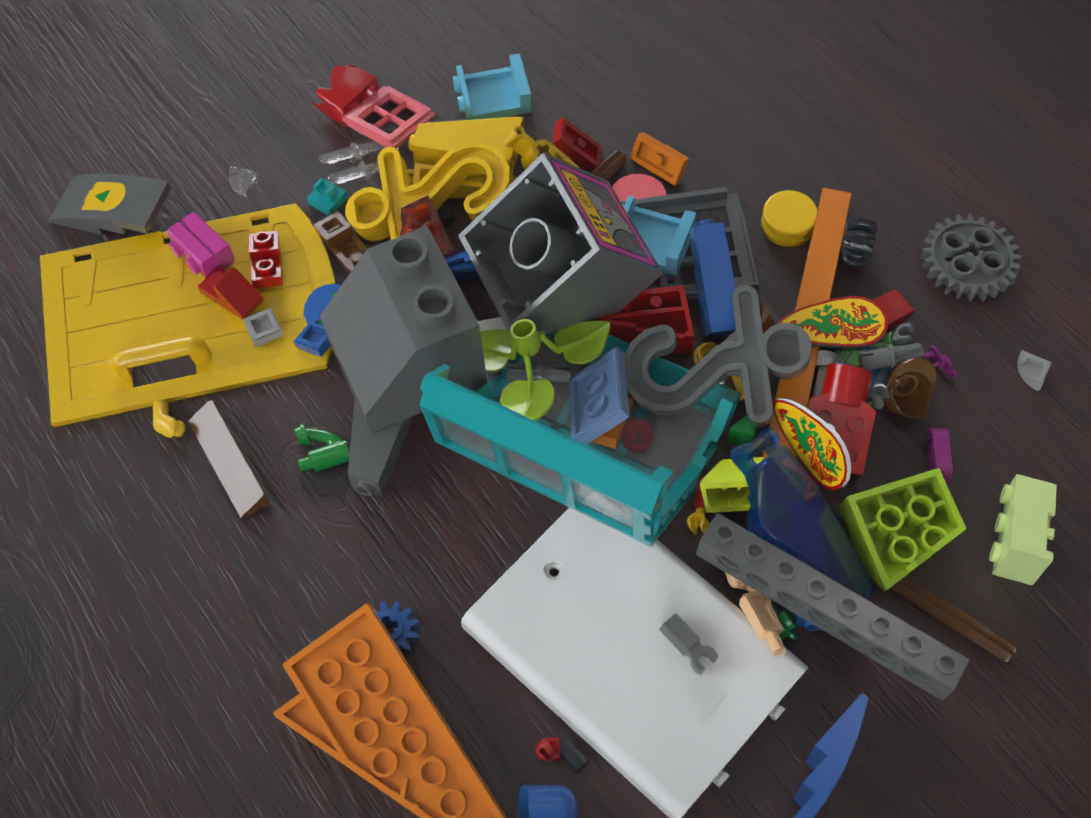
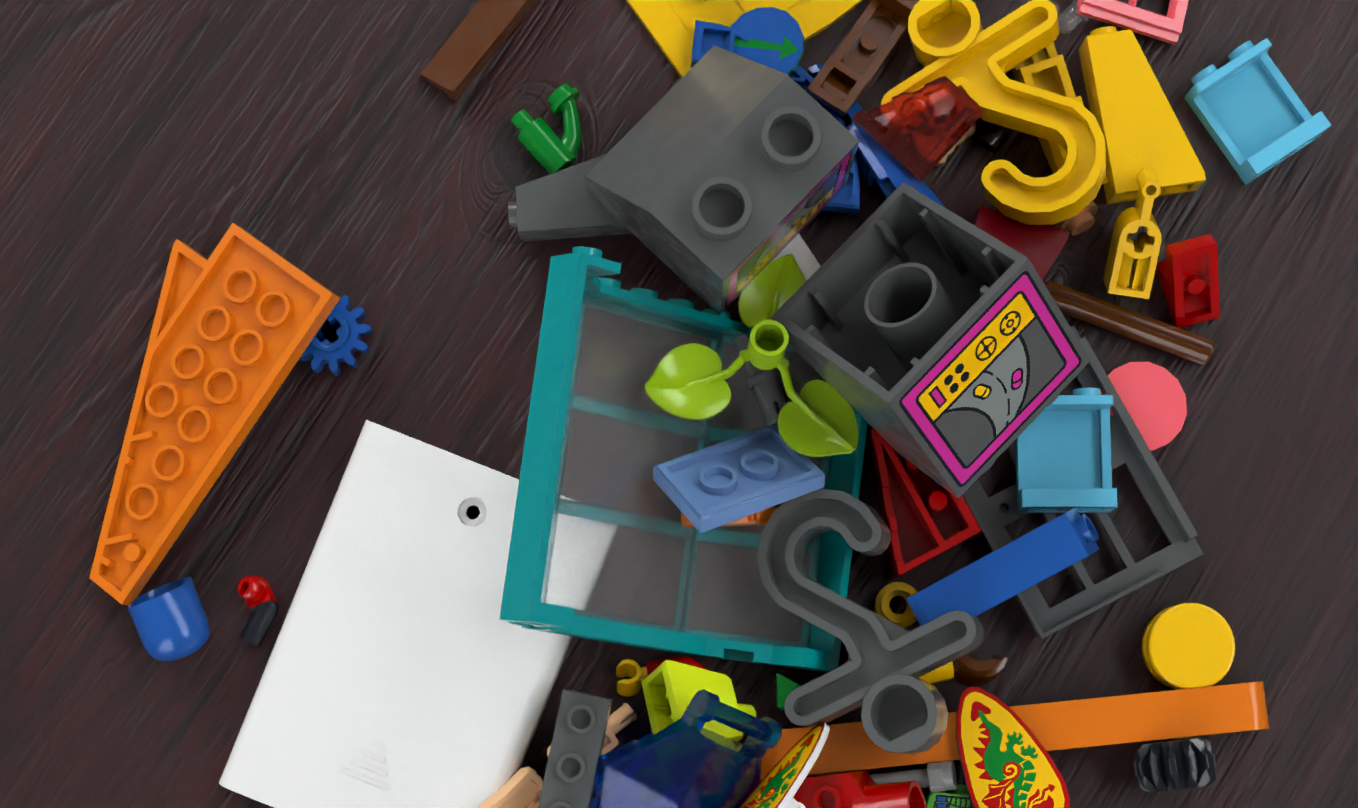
camera: 65 degrees right, 20 degrees up
(637, 436) = (721, 549): dark red tile -> none
(659, 158) = (1220, 418): orange hinge -> none
(687, 642) = (433, 717): dark grey bar -> none

